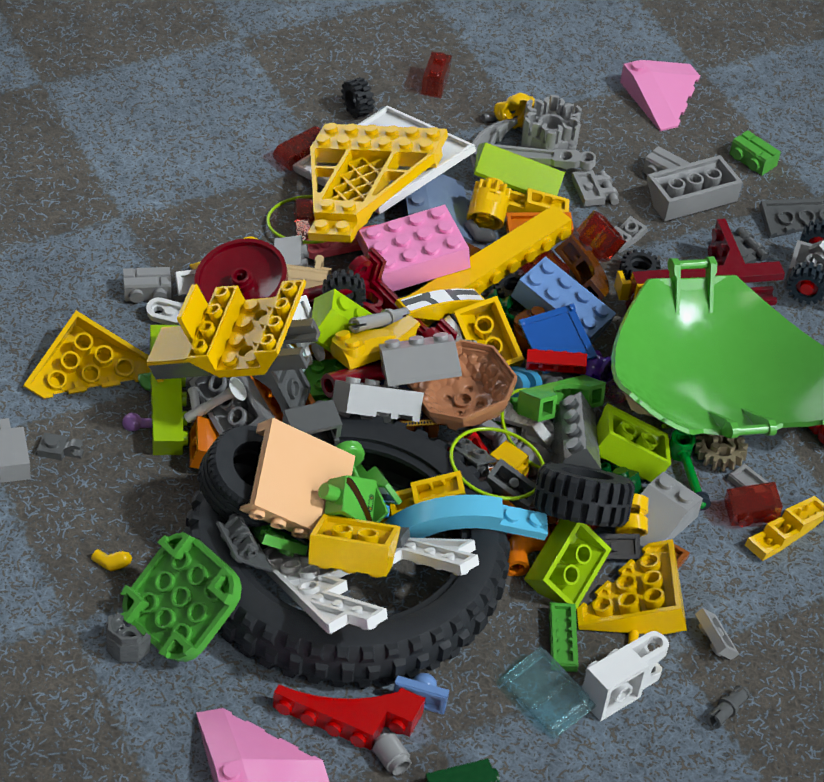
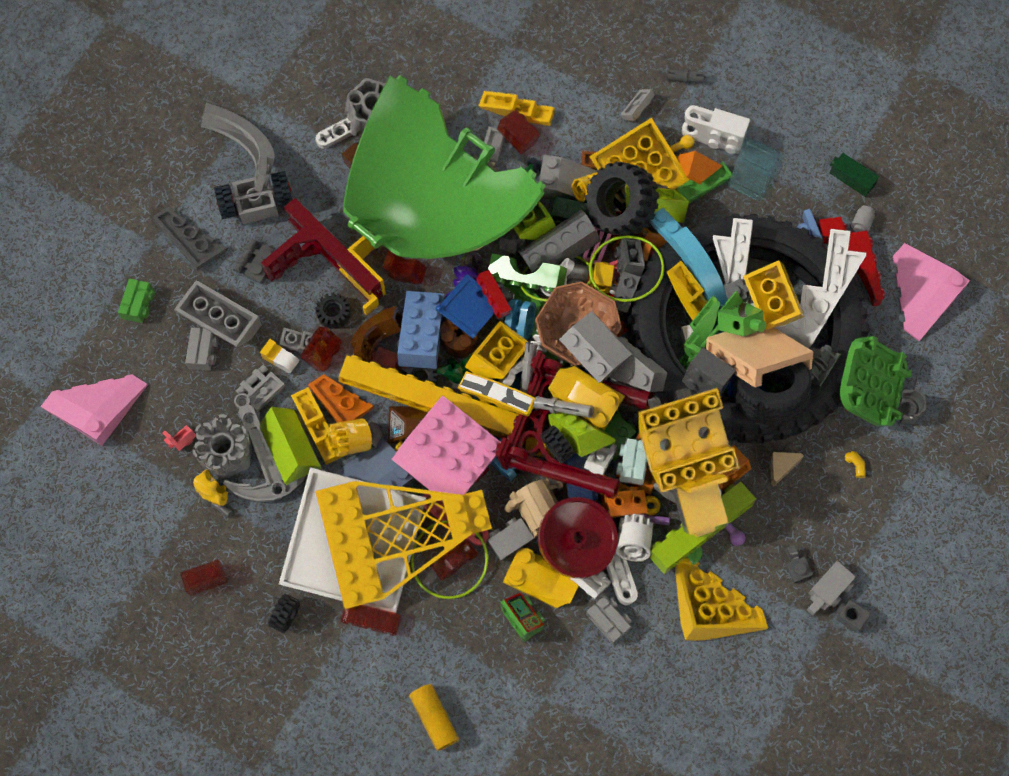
camera: 115 degrees left, 25 degrees up
(171, 493) = (782, 464): none -> tan slope
(177, 137) = (437, 724): none -> yellow piece
(208, 223) = (522, 616): none -> slope
(585, 627) = (697, 166): none -> orange slope
(589, 110) = (181, 439): none -> coral bracket
(620, 210) = (279, 356): none -> leg

